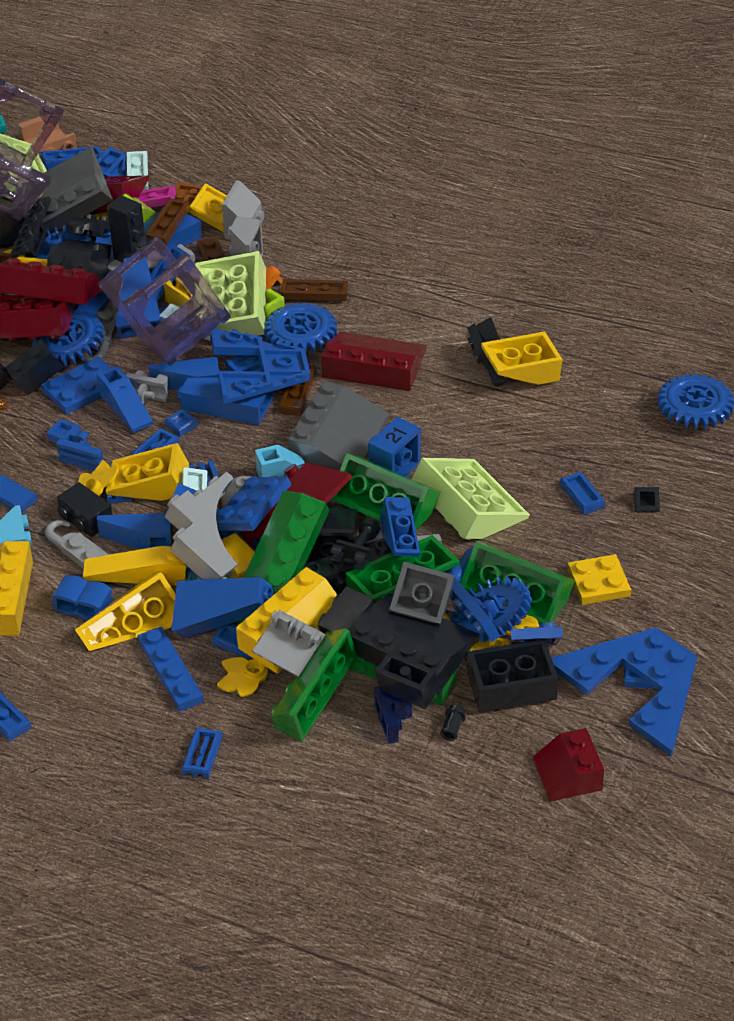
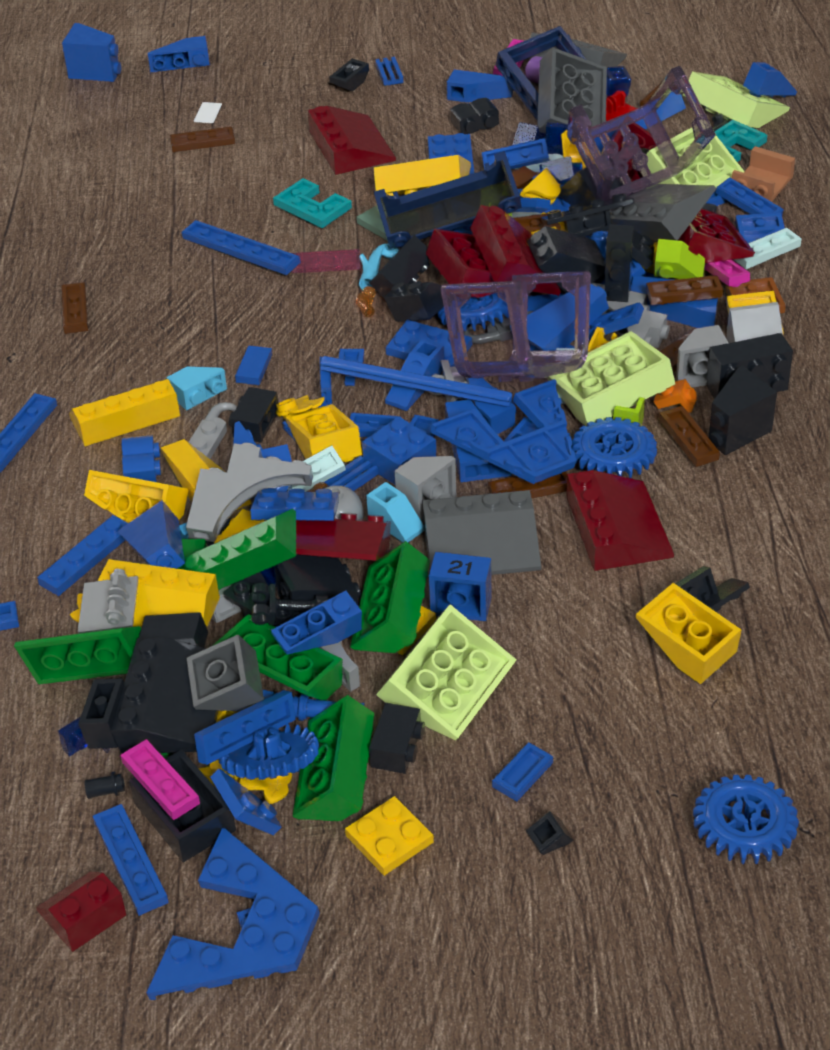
camera: 65 degrees right, 0 degrees up
(142, 397) = (416, 381): none -> blue axle
(208, 438) = (396, 445): none -> blue brick
(268, 428) = (426, 479): none -> light grey slope
(279, 229) = (764, 356): none -> black brick
(318, 249) = (741, 411): none -> black slope
(499, 666) = (160, 779): none -> dark pink plate
(515, 539) = (396, 738): none -> black brick
(534, 725) = (130, 860): none -> blue plate

